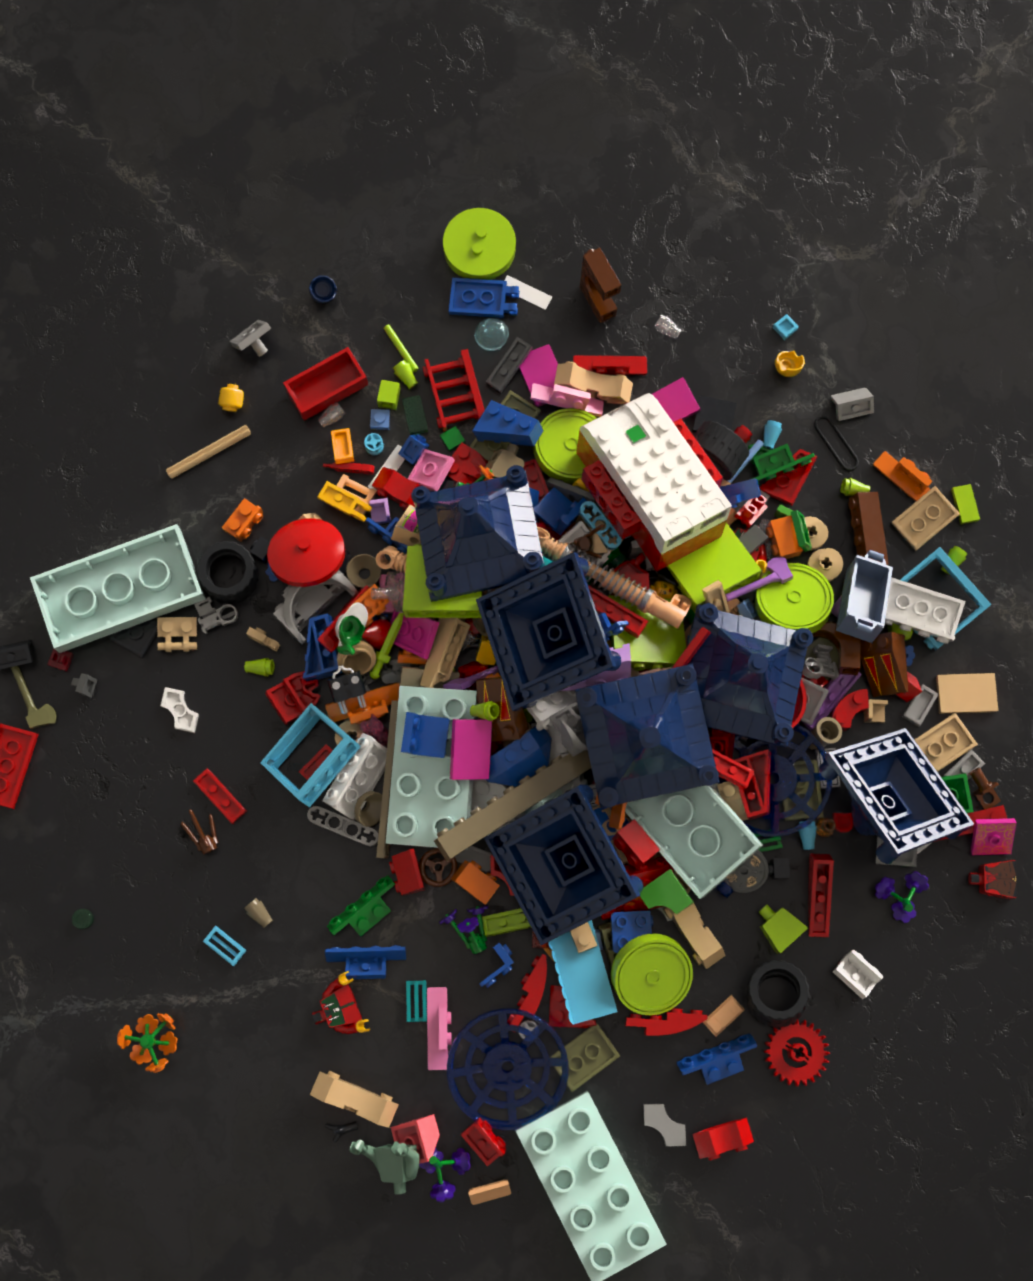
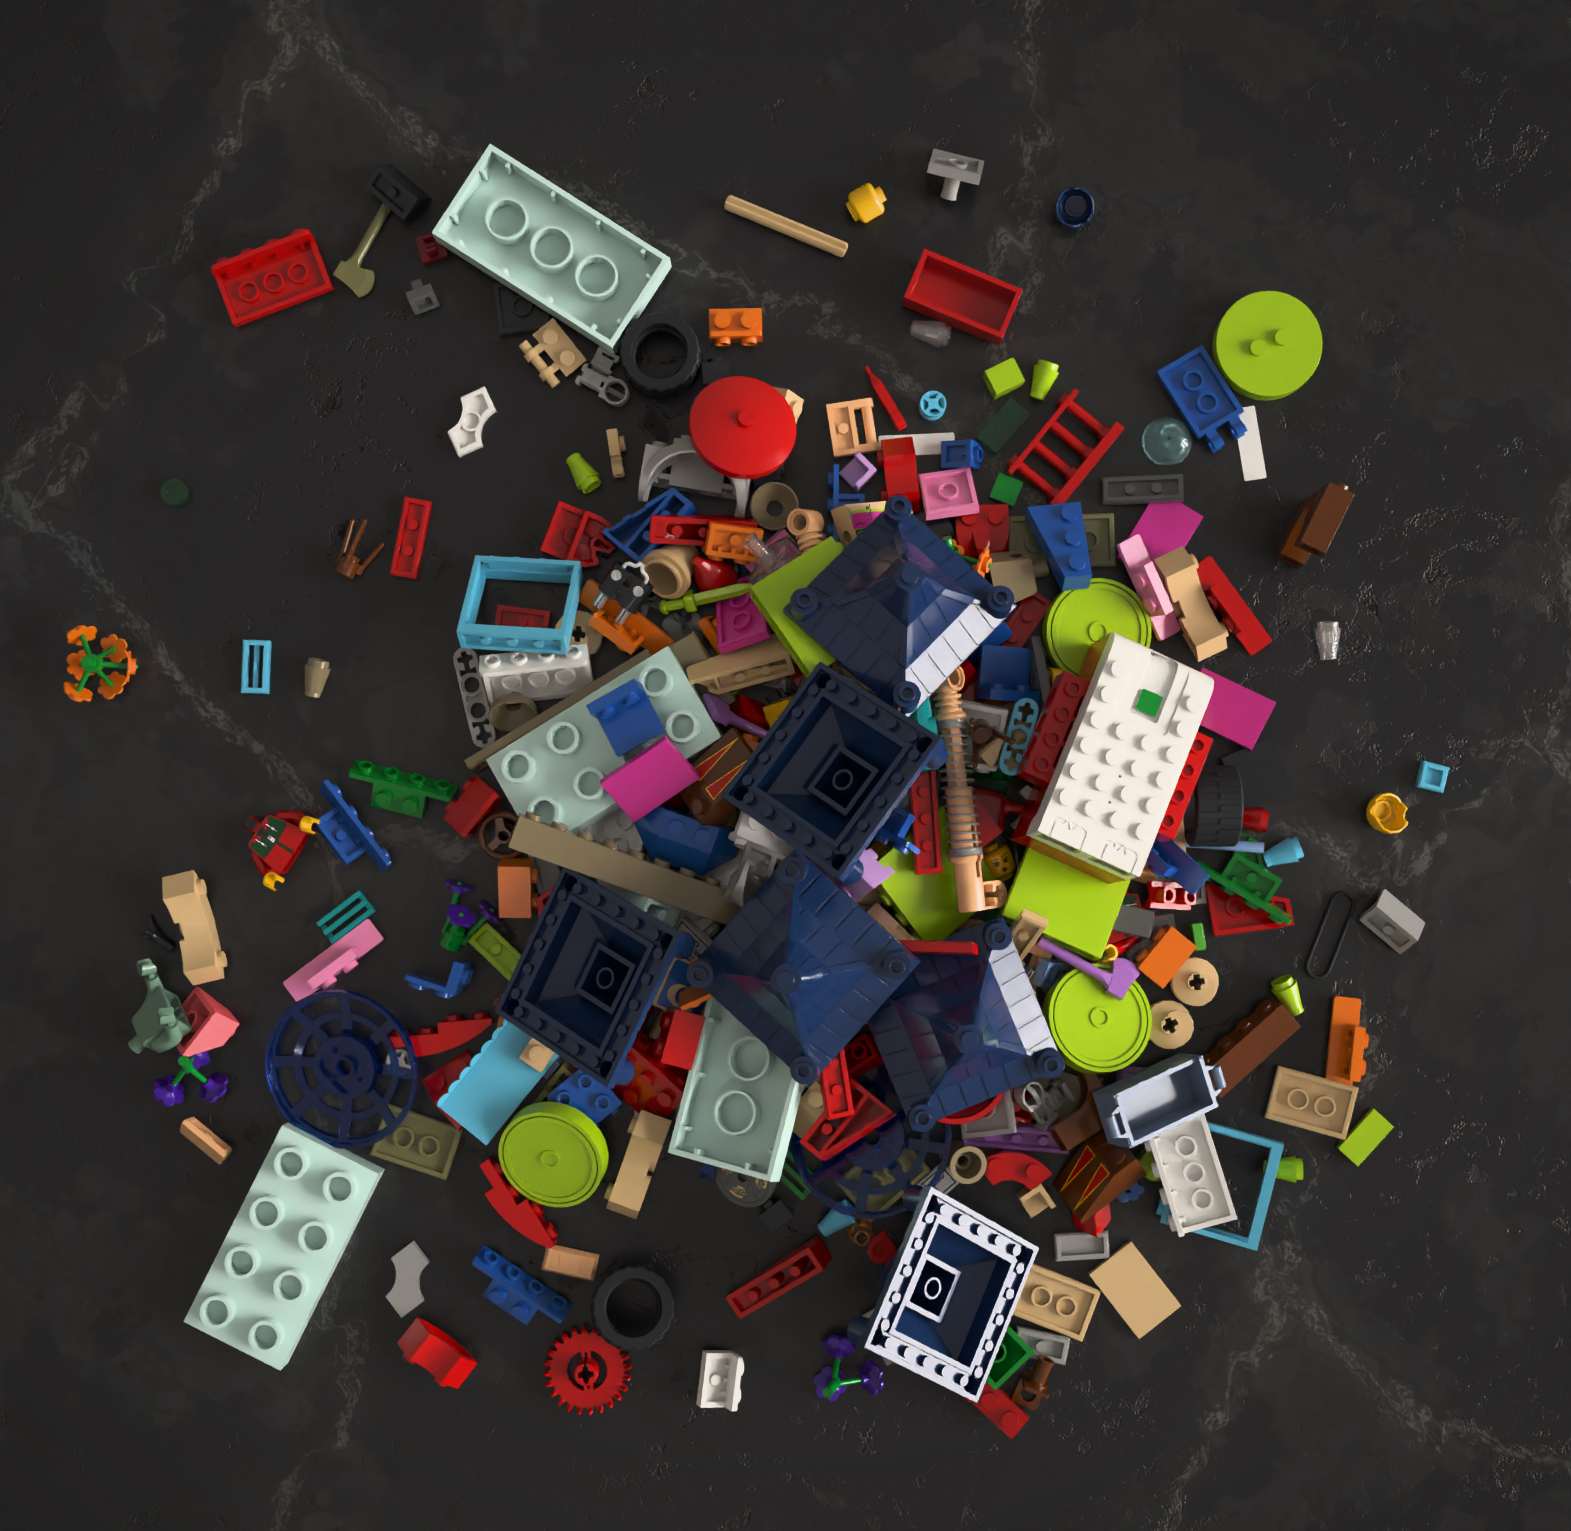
camera: 60 degrees right, 10 degrees up
(342, 446) = (903, 372): light orange tile -> none
(343, 500) = (837, 421): yellow hinge -> none
(350, 628) = (688, 544): green hair -> none
(375, 729) = (602, 656): clear pink hinge -> none
(380, 419) = (968, 390): medium blue plate -> none
(406, 356) = (1071, 349): lime piece -> none
(483, 1141) = (250, 1098): red bracket -> none
(486, 710) = (703, 764): lime cone -> none
(666, 892) = (650, 1110): bright green tile -> none
(780, 928) = (710, 1260): lime torso -> none
(801, 530) = (1185, 970): green tile -> none
(993, 836) = (984, 1430): dark pink plate -> none
(996, 879) = (939, 1464): torso -> none

